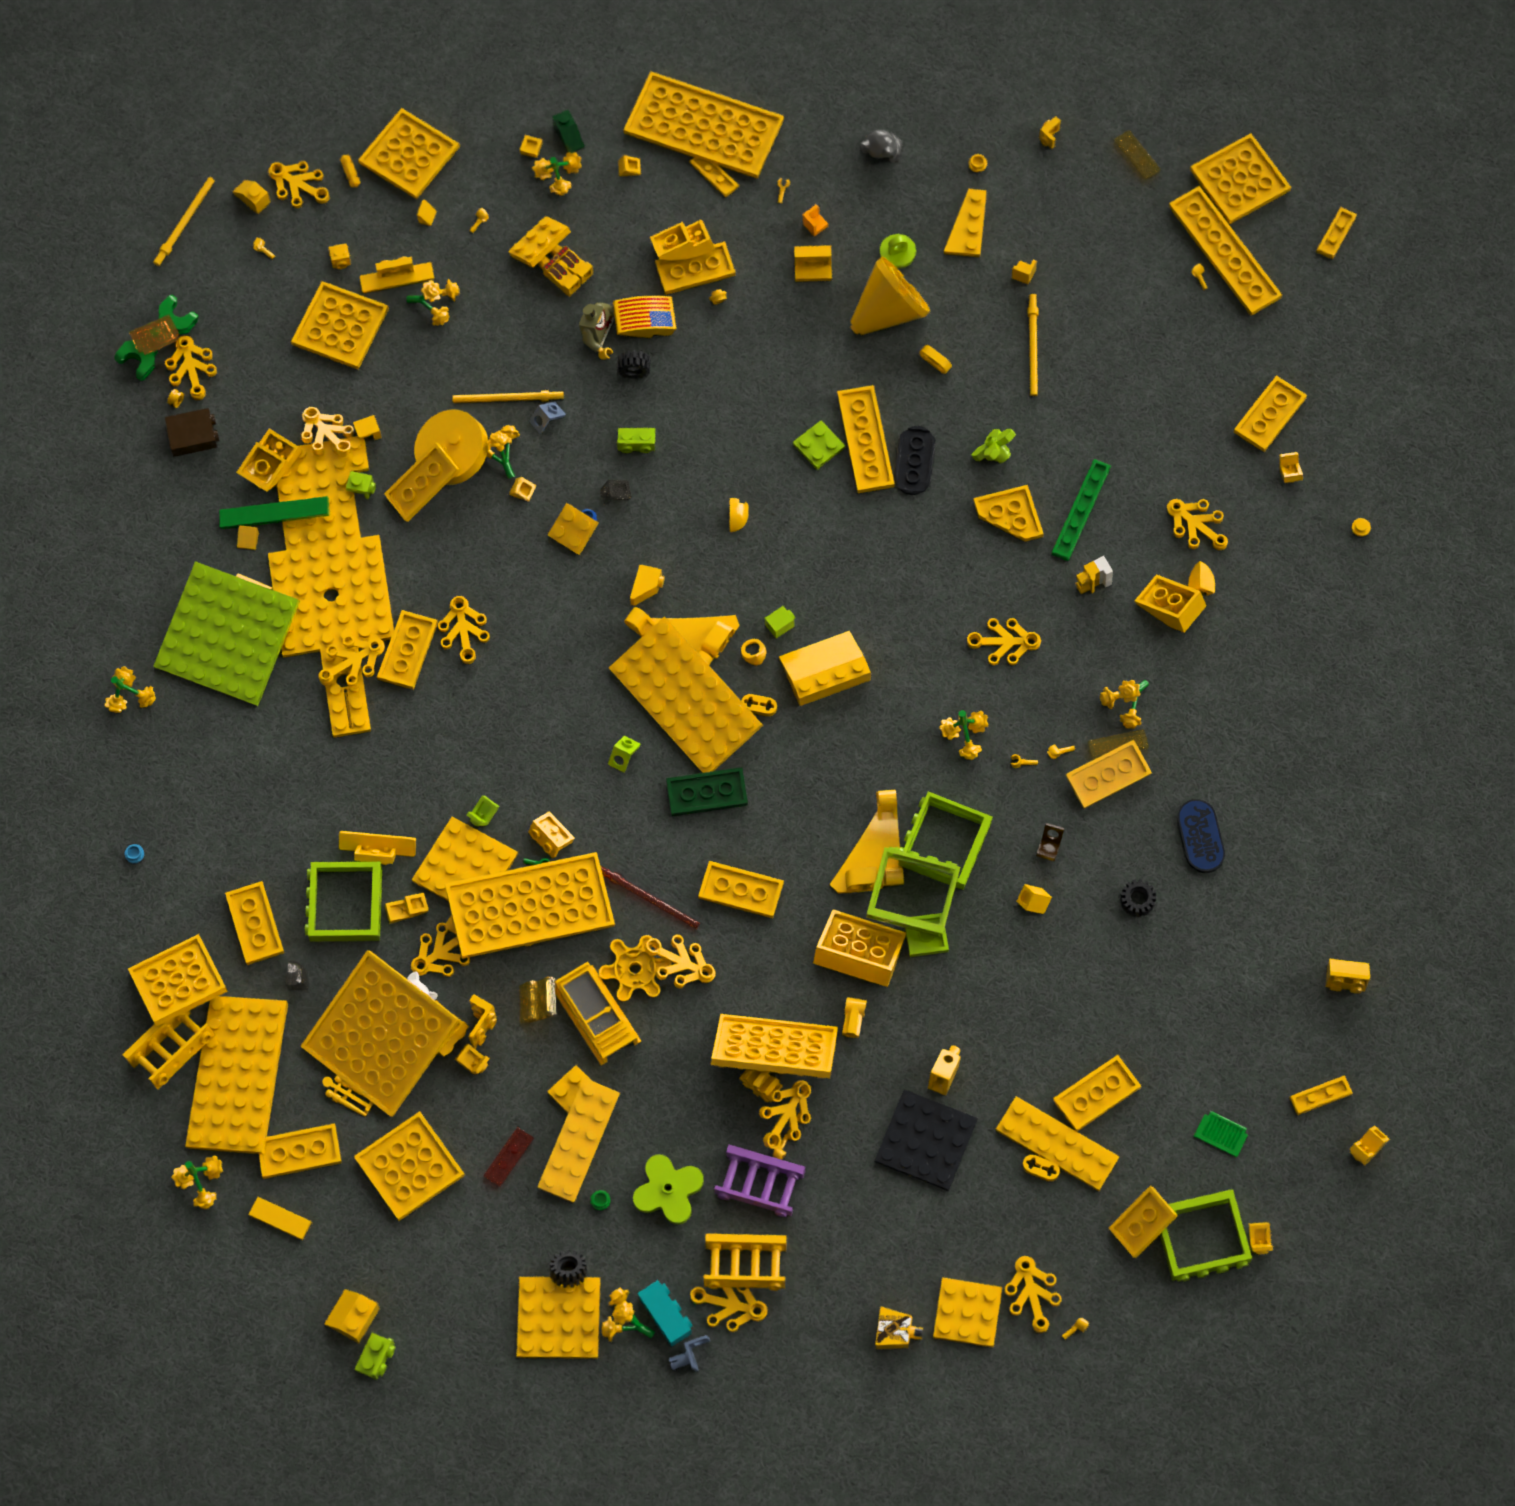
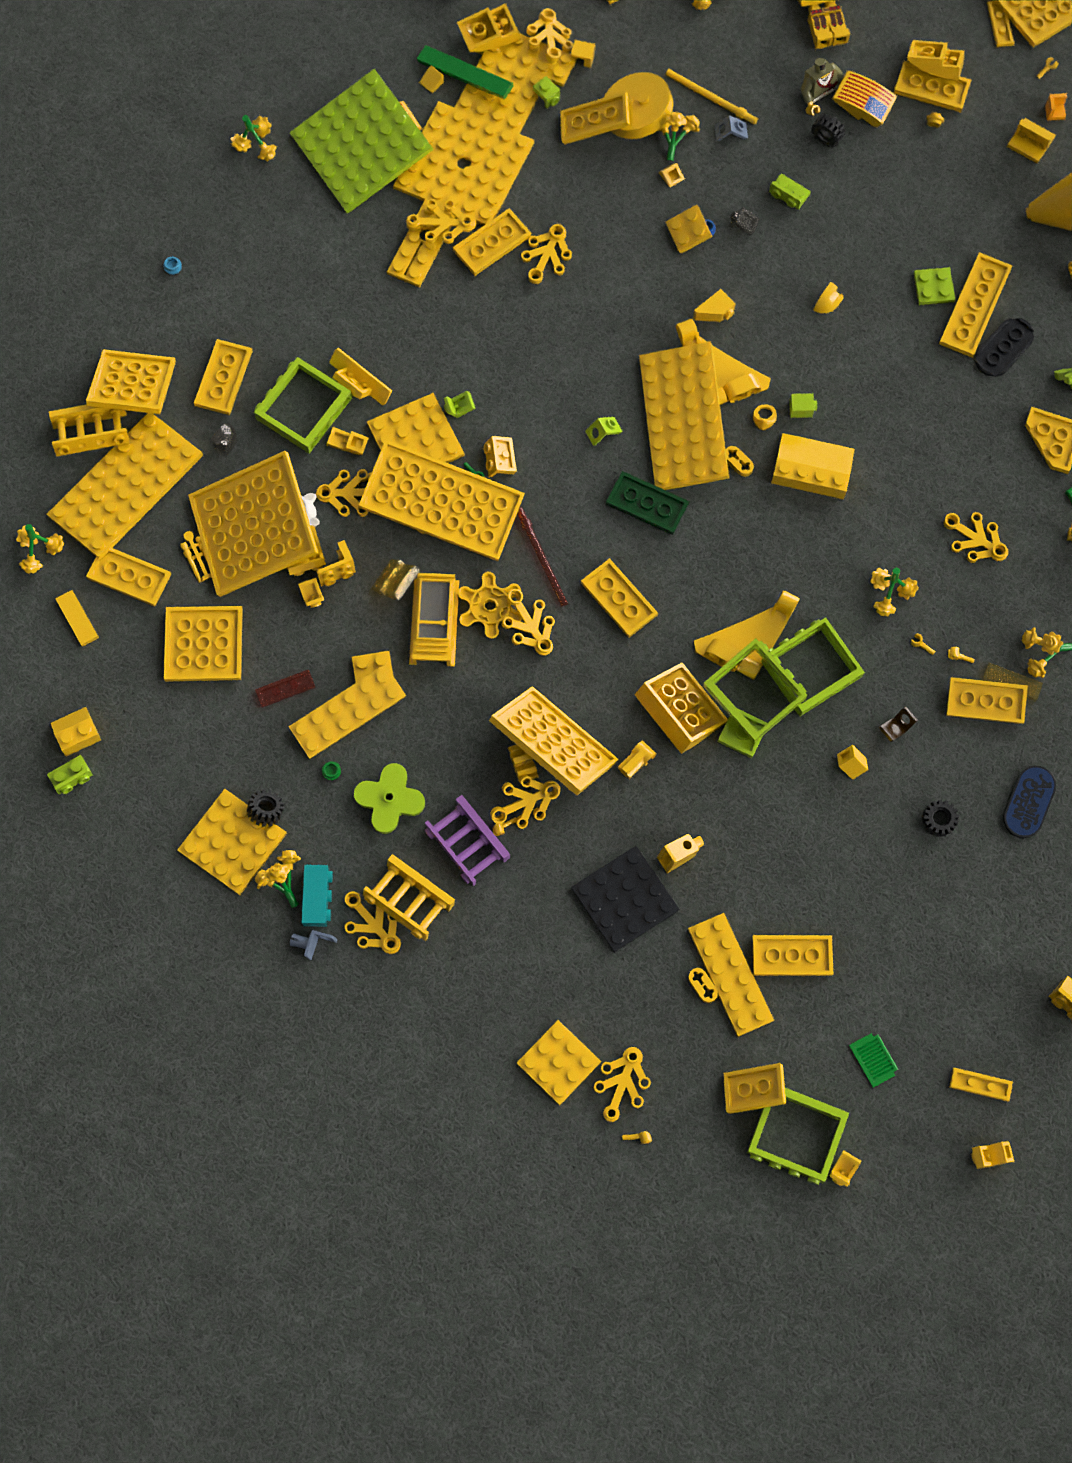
camera: 30 degrees right, 5 degrees up
(895, 1330) = (489, 1036): torso -> none

